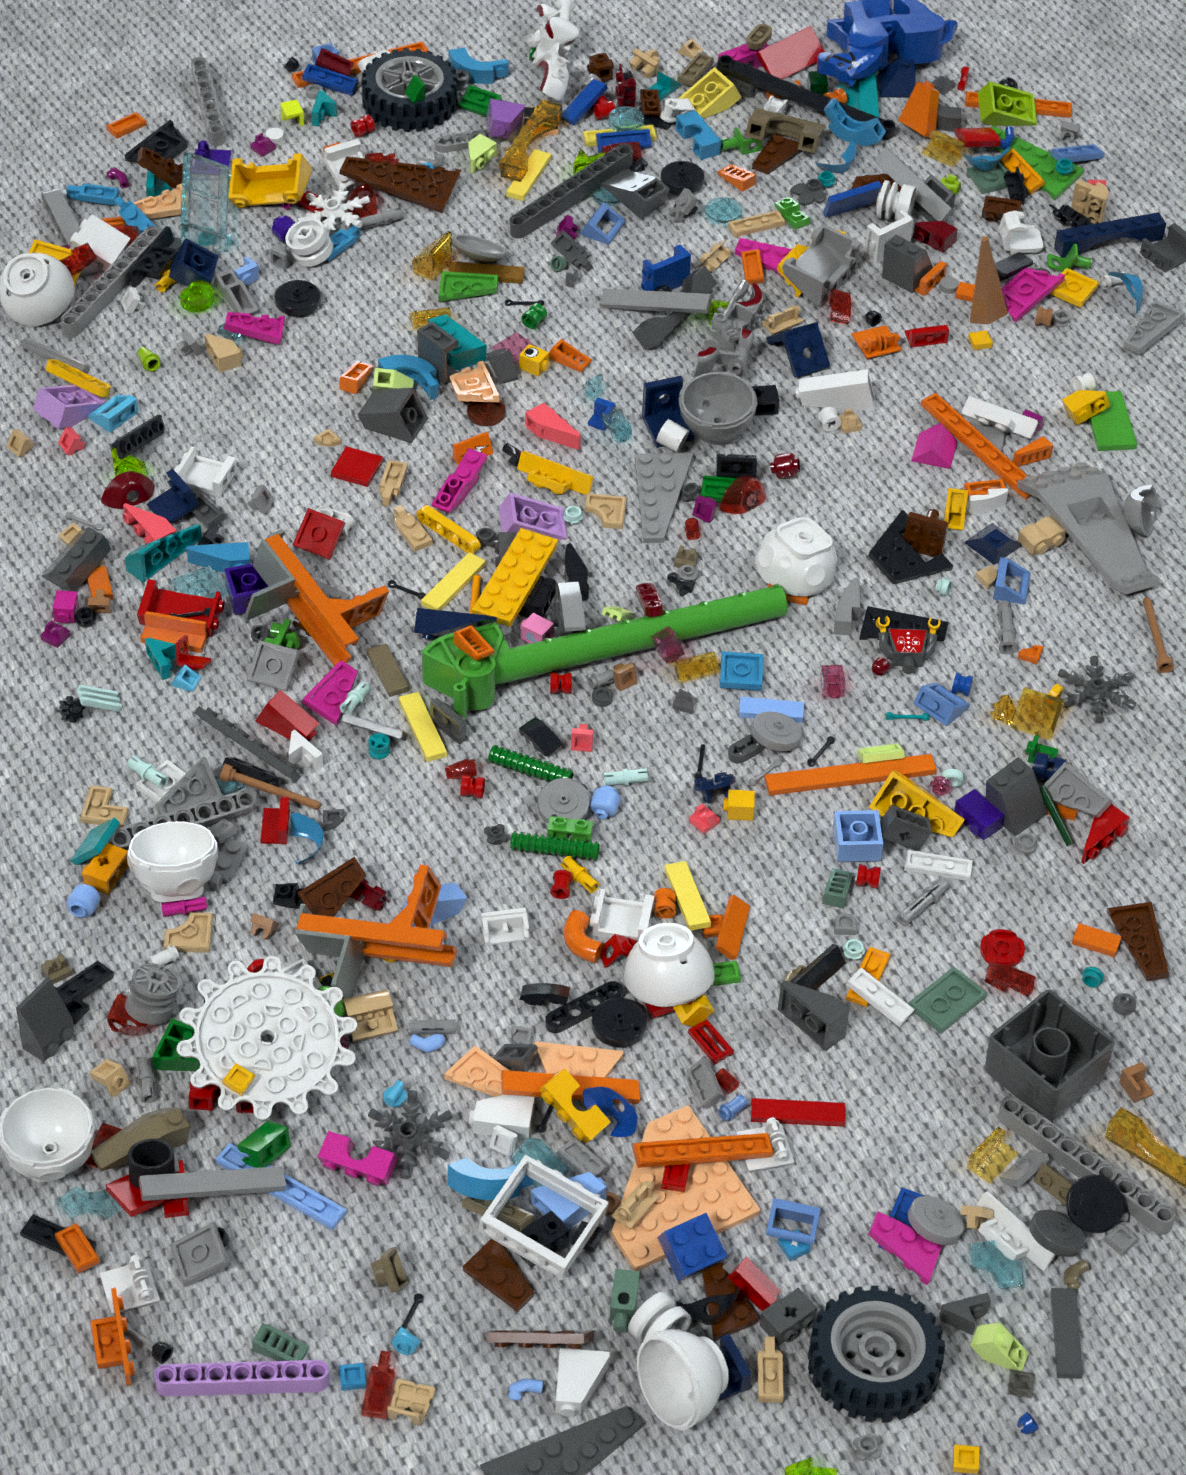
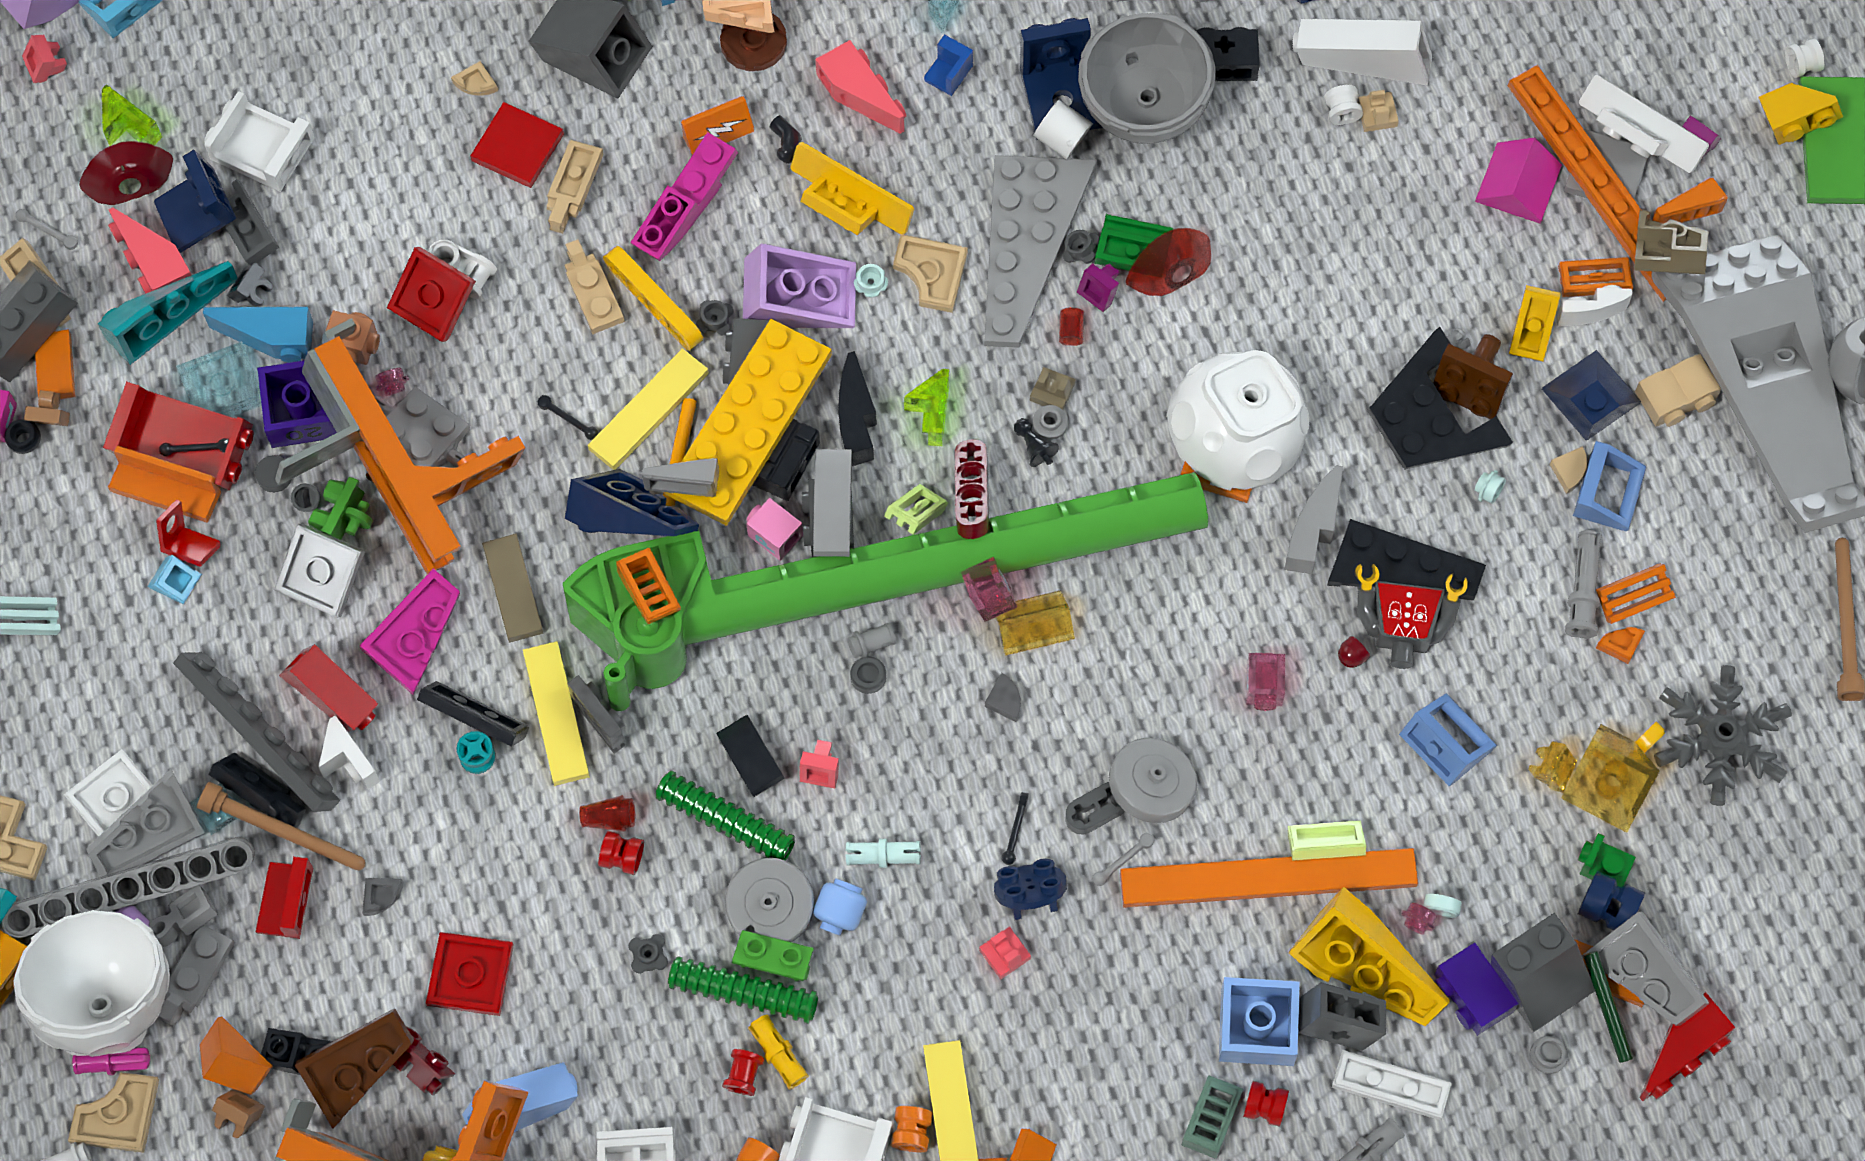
camera: 10 degrees right, 20 degrees up
(139, 437) = (150, 66): black bracket -> none
(147, 771) = (82, 779): light aqua pin -> none
(161, 655) = (134, 528): teal slope -> none
(237, 626) = (266, 473): none -> dark grey tile
(258, 899) = (231, 1059): none -> orange slope
(261, 499) = (346, 208): light grey tile -> none
(306, 827) = (330, 913): dark azure piece -> none
(355, 698) = (448, 648): light aqua pin -> none
(391, 852) = (469, 974): none -> red tile
(490, 597) = (688, 477): none -> light grey slope
(566, 683) = (808, 644): red wheel -> none
(617, 566) = (932, 400): none -> clear neon green slope
(619, 427) = (973, 93): clear light blue plate -> none
(624, 675) = (910, 638): medium nougat tile -> none
(736, 465) = (1164, 199): black brick -> none
(739, 805) = (1067, 932): yellow brick -> none
(741, 671) = (1112, 642): dark azure plate -> none
(753, 706) = (1136, 721): light blue tile -> none
(785, 466) = (1251, 203): dark red head -> none
(811, 762) = (1205, 844): black hinge -> none
(890, 716) = (1415, 763): teal hinge -> none
(962, 684) = (1489, 704): blue wheel -> none
(1025, 467) = (1670, 247): none -> dark tan slope
(1049, 623) = (1662, 583): none -> orange tile

